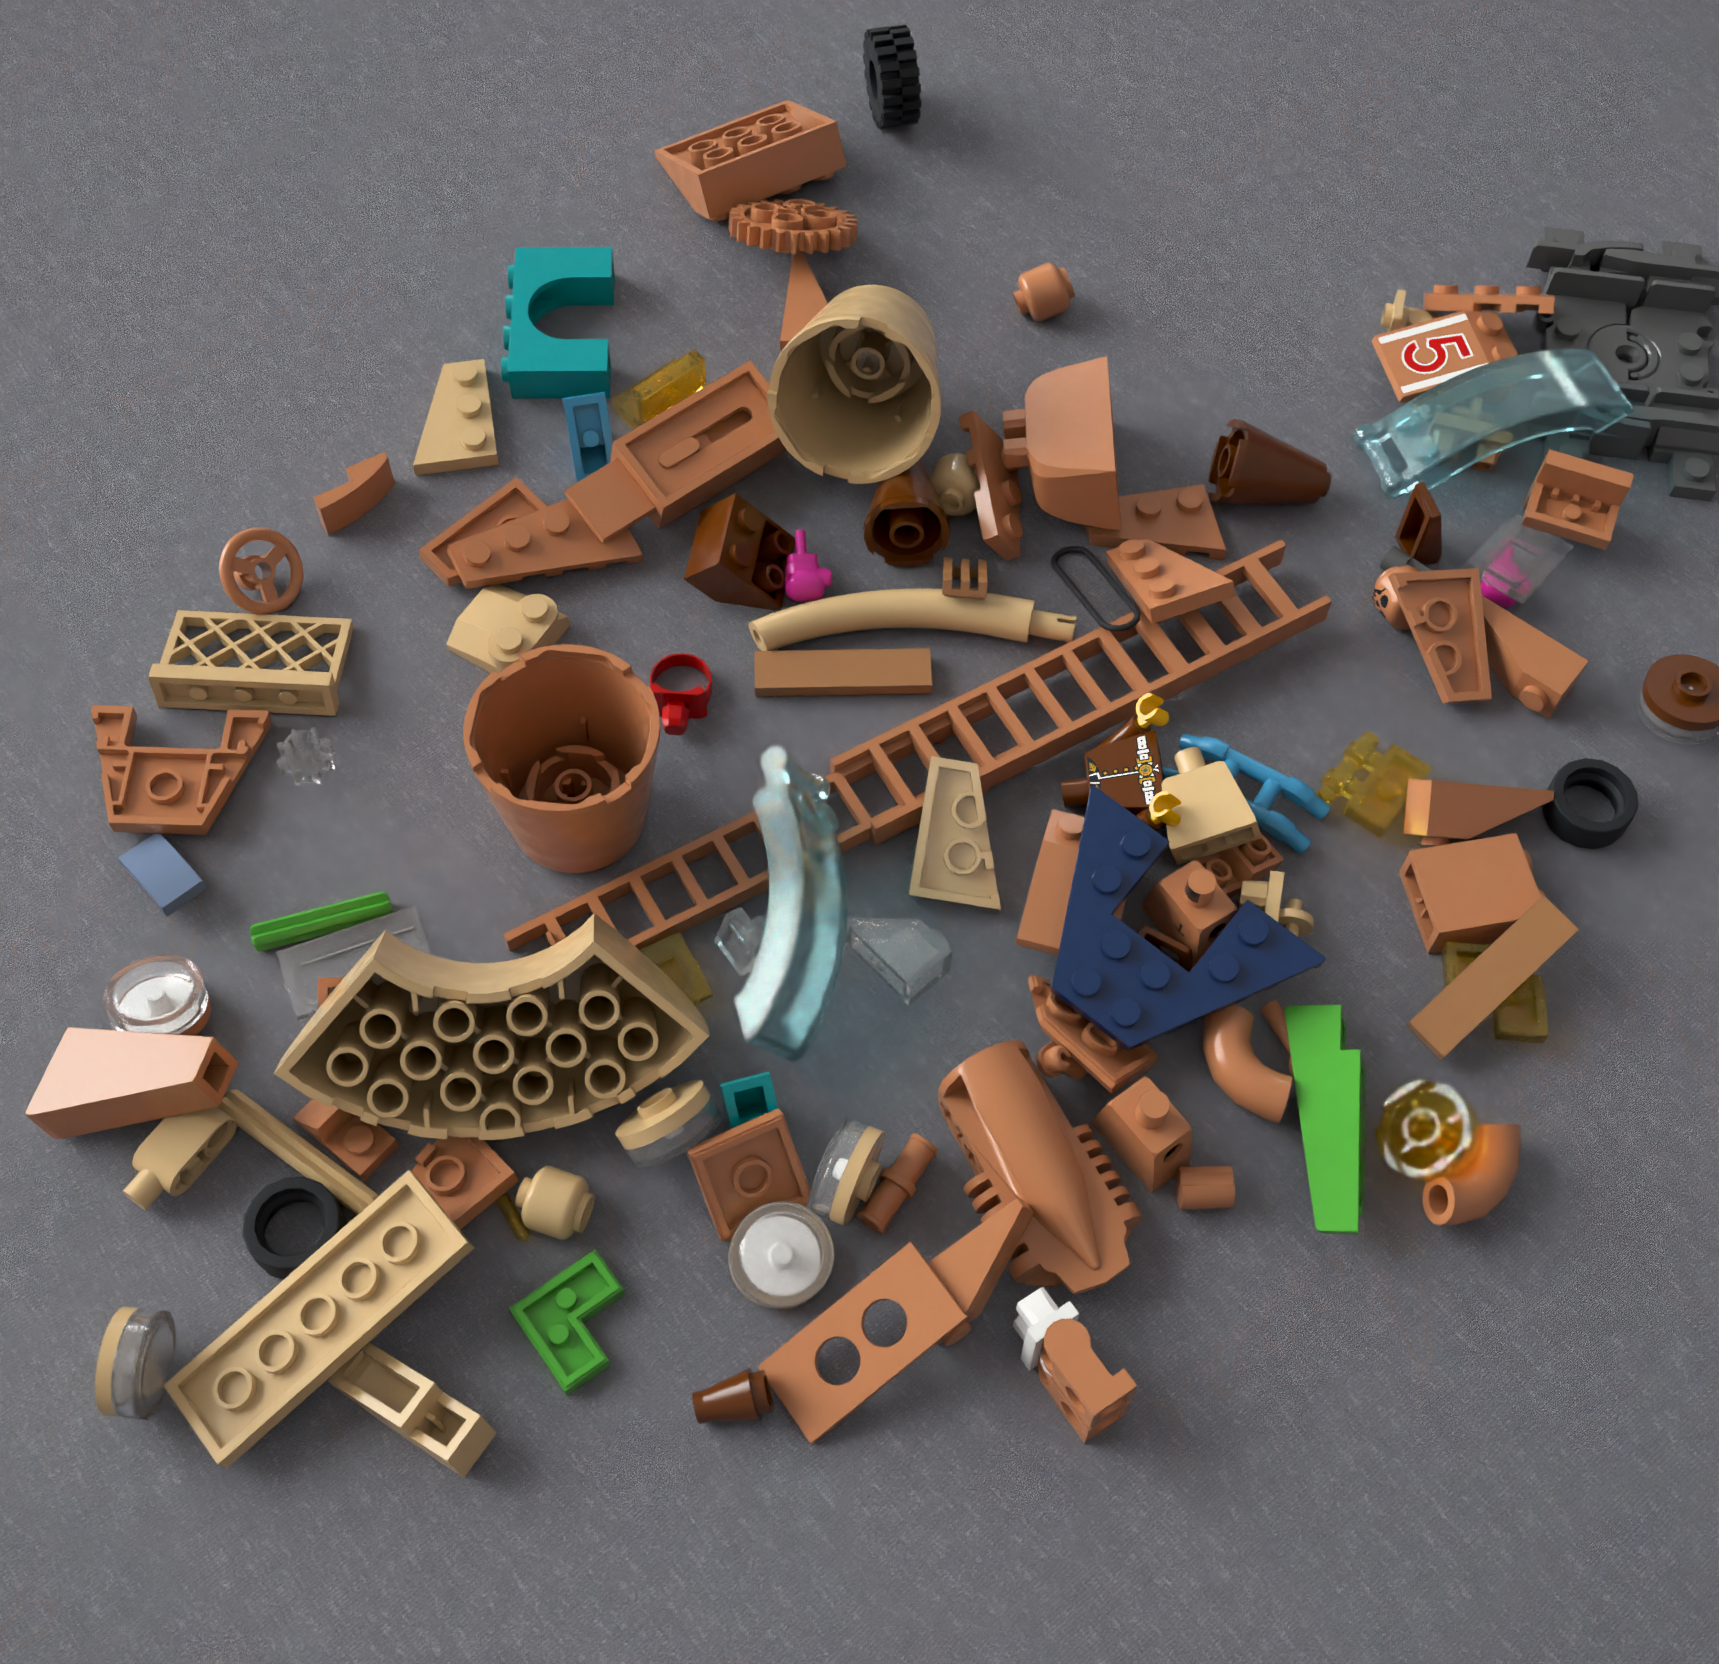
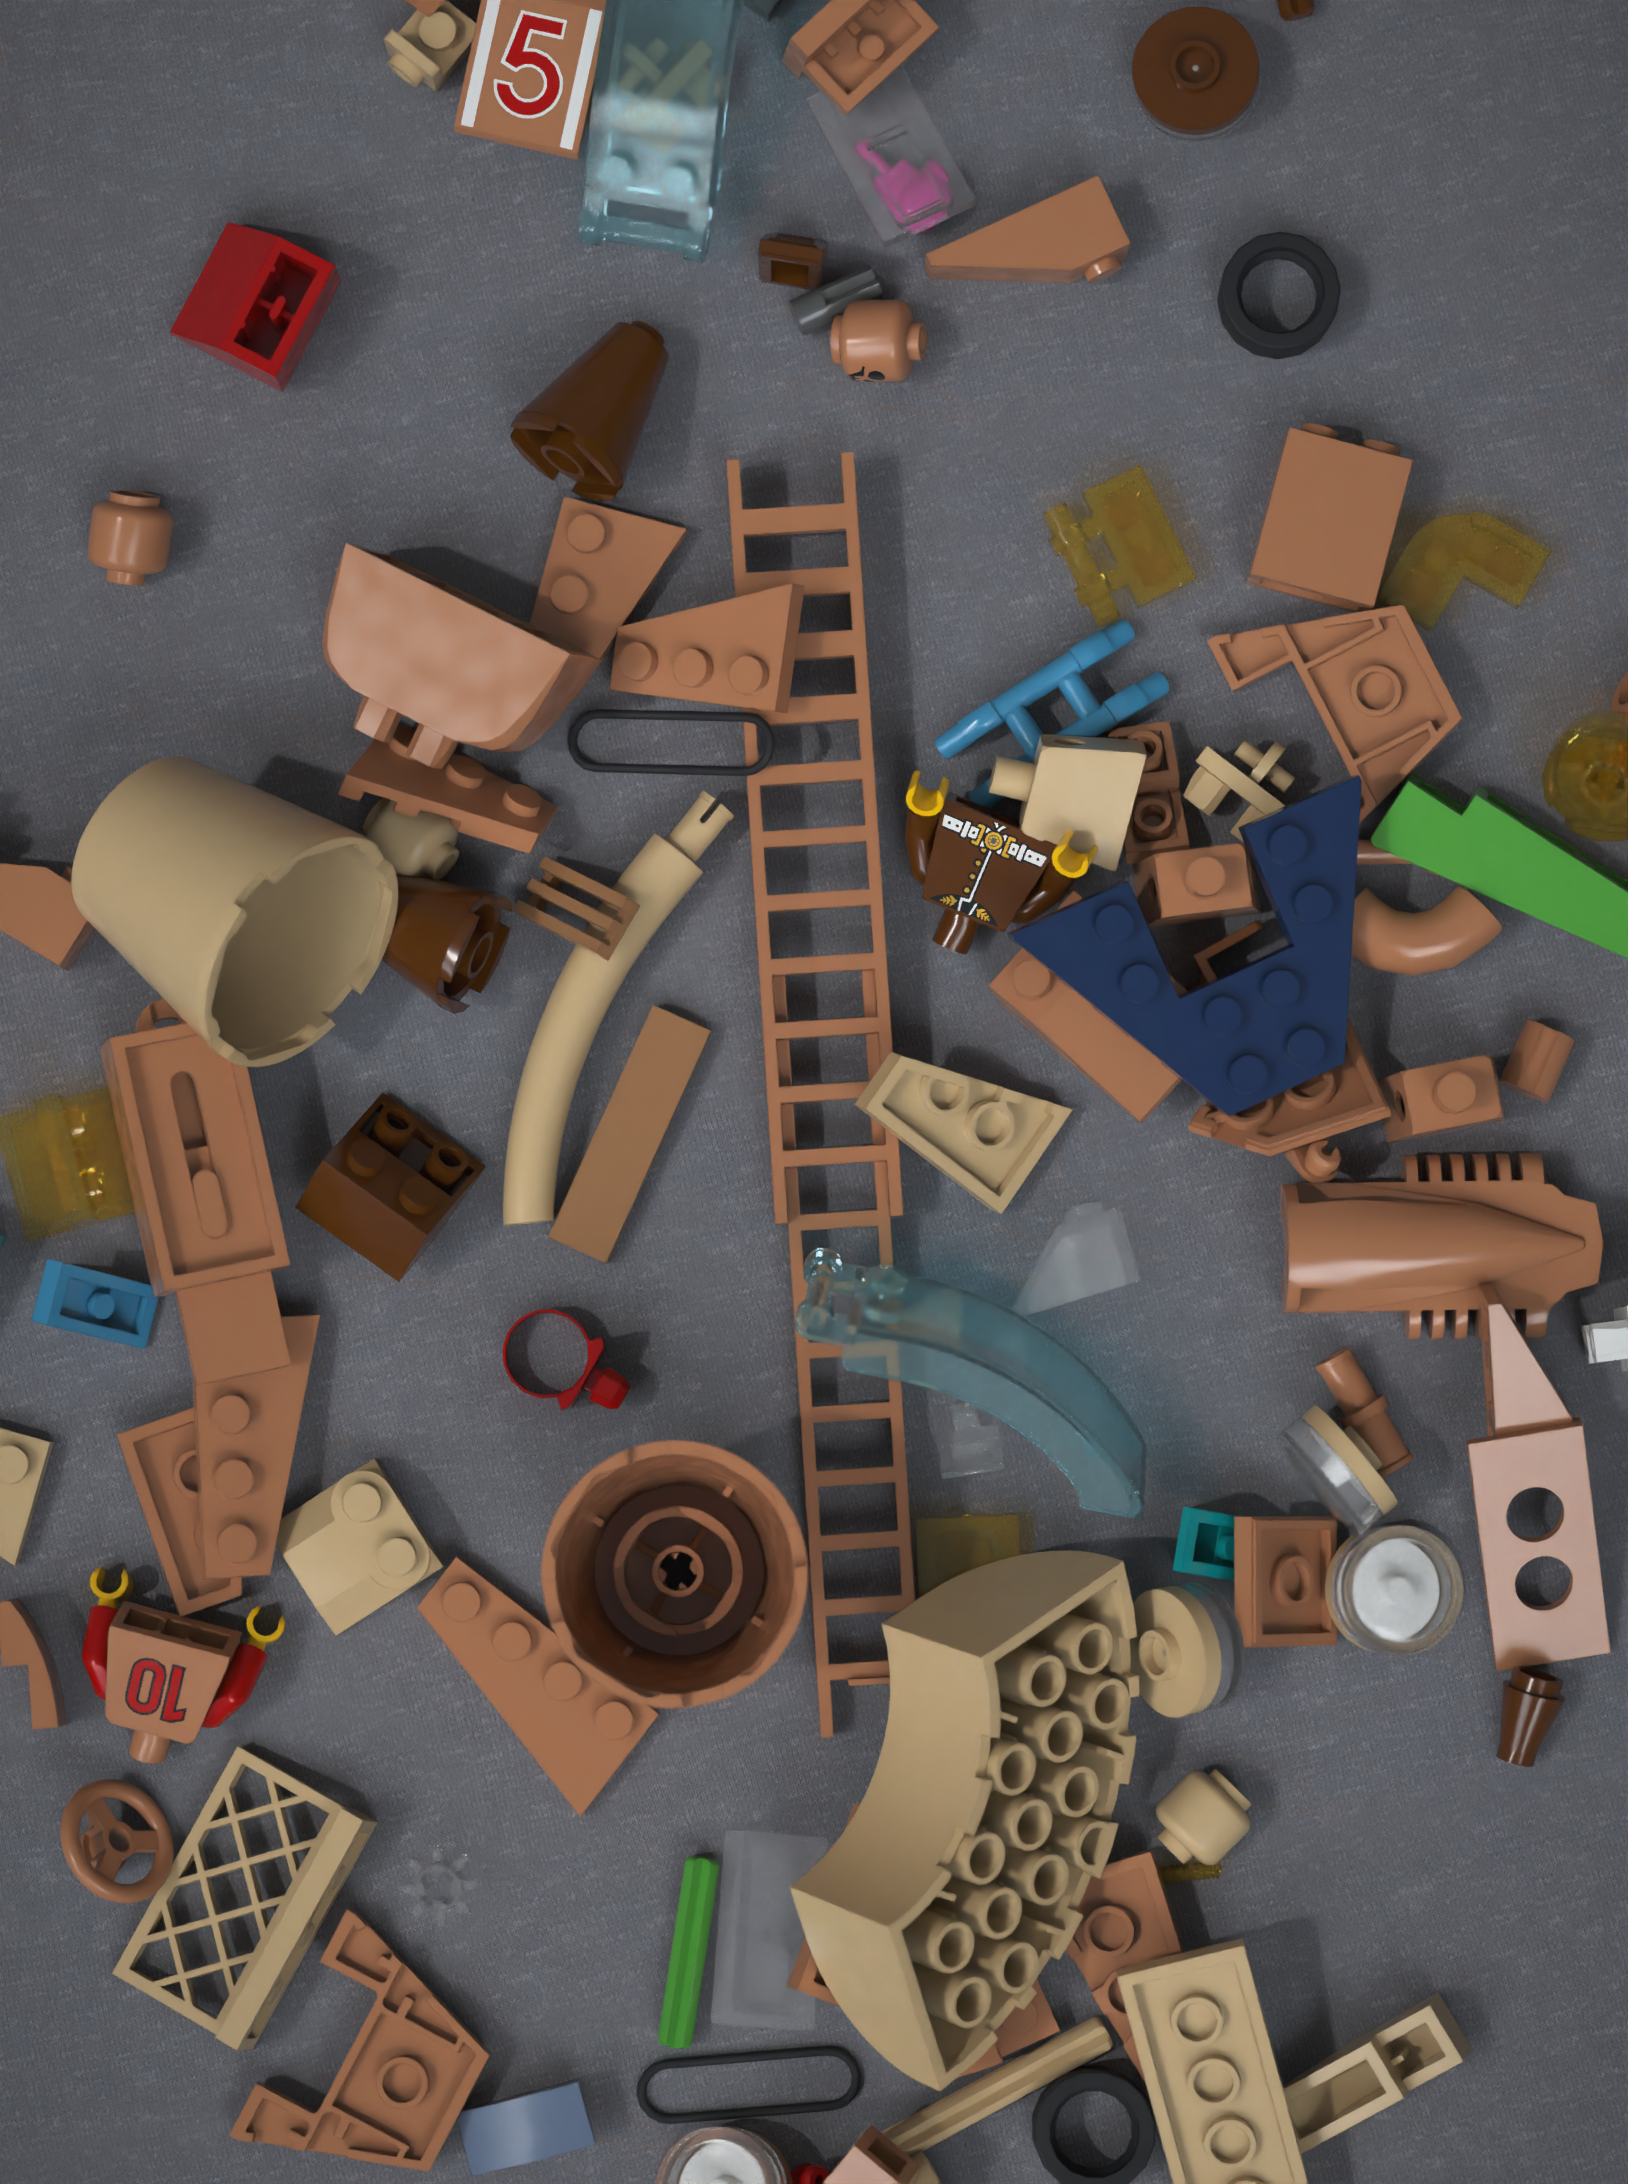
camera: 65 degrees left, 25 degrees up
(224, 1007) = (755, 2111): none -> black piece
(382, 557) = (167, 1670): none -> torso
(445, 792) = (550, 1704): none -> nougat wing
(555, 1318) = (1334, 1874): bright green tile -> none
(803, 576) = (460, 1115): dark pink piece -> none
(1212, 303) = (257, 303): none -> red slope
(1382, 966) = (1367, 683): none -> nougat wing
(1449, 629) = (965, 324): nougat wing -> none
(1464, 809) = (1219, 457): nougat slope -> none
(1492, 977) = (1456, 576): medium nougat tile -> none

